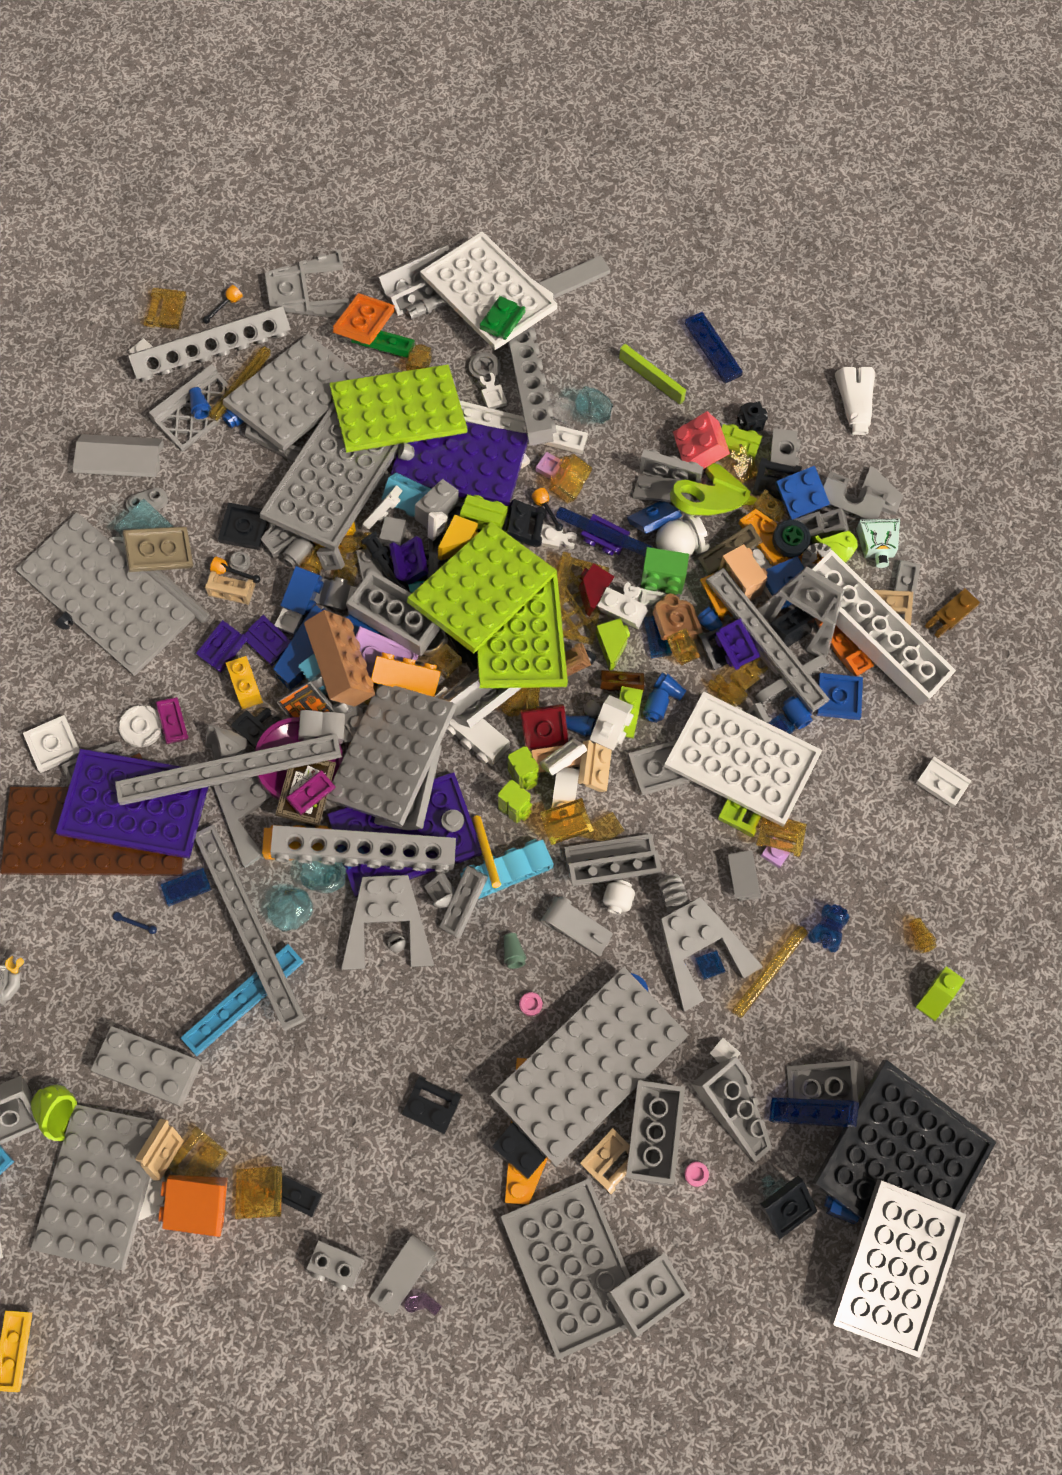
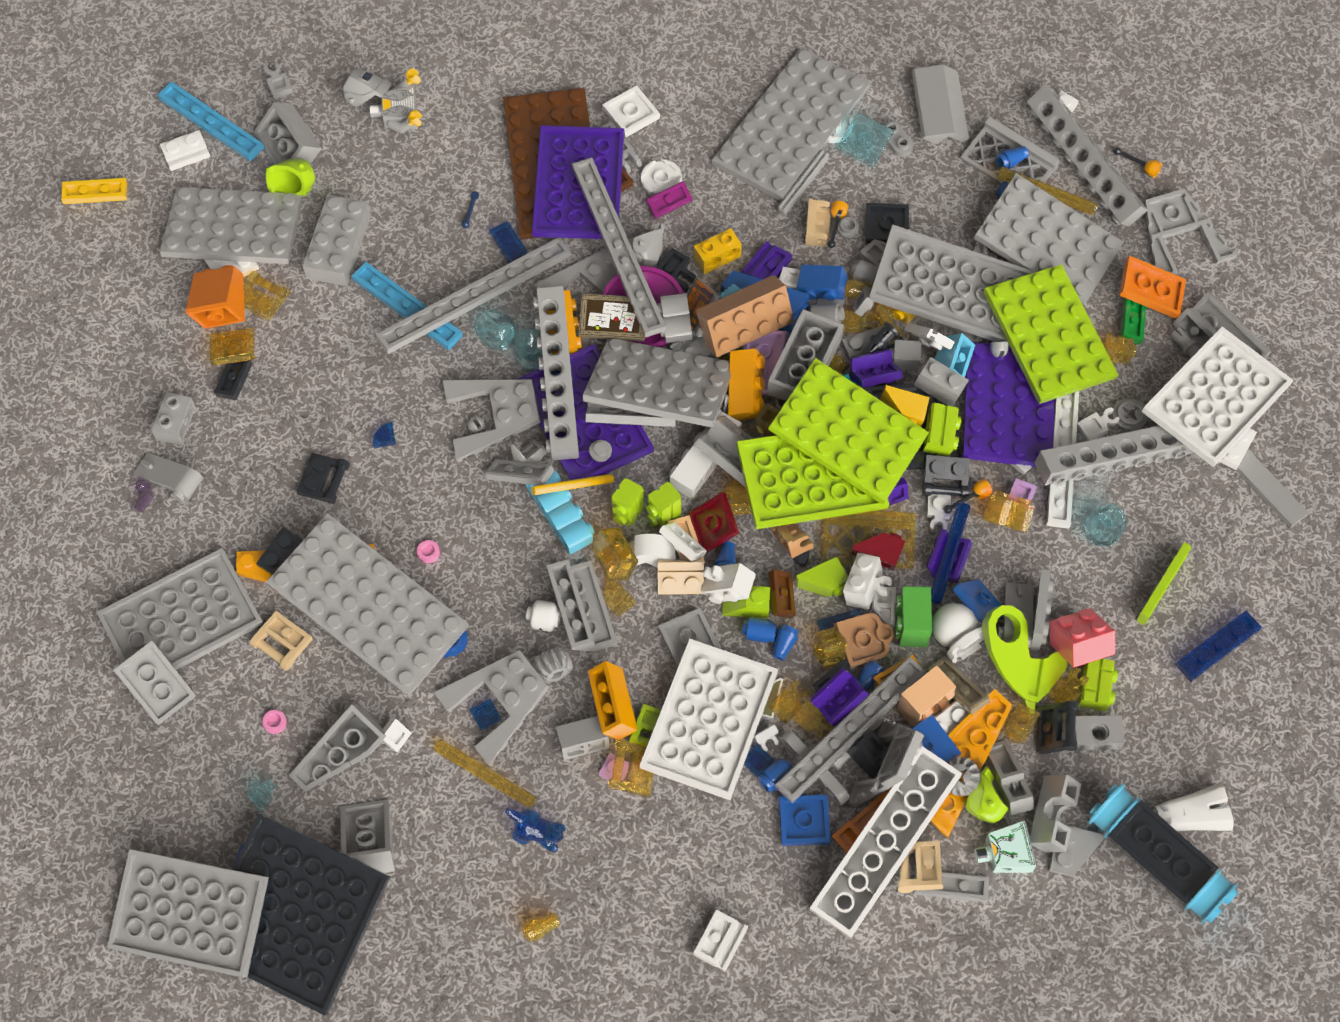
camera: 85 degrees right, 5 degrees down
(63, 621) = (755, 94): black hinge -> none
(157, 549) = (843, 153): dark tan tile -> none
(159, 1150) = (262, 260): tan plate -> none
(171, 309) = (1119, 117): clear yellow plate -> none
(221, 646) = (753, 226): dark purple plate -> none
(310, 793) = (606, 318): magenta plate -> none
(393, 1036) = (384, 436): none -> clear blue tile
(436, 524) = (916, 382): white tile -> none
(502, 318) = (1179, 409): green plate -> none
(513, 952) = (477, 527): sand green cone -> none
(567, 919) = (509, 581): light grey door -> none
(655, 1133) = (306, 673): light grey slope -> none
(716, 842) = (612, 700): none -> light orange brick
(752, 416) = (1133, 694): black brick -> none
(788, 1207) = (242, 803): black plate -> none
(798, 535) = (981, 735): black wheel -> none
(802, 493) = (1042, 752): blue plate -> none
(814, 1112) = (334, 815): clear blue plate -> none
(895, 423) = (1163, 853): none -> black brick
(940, 993) = (478, 948): lime slope -> none
(953, 612) = (934, 943): pearl gold hinge -> none

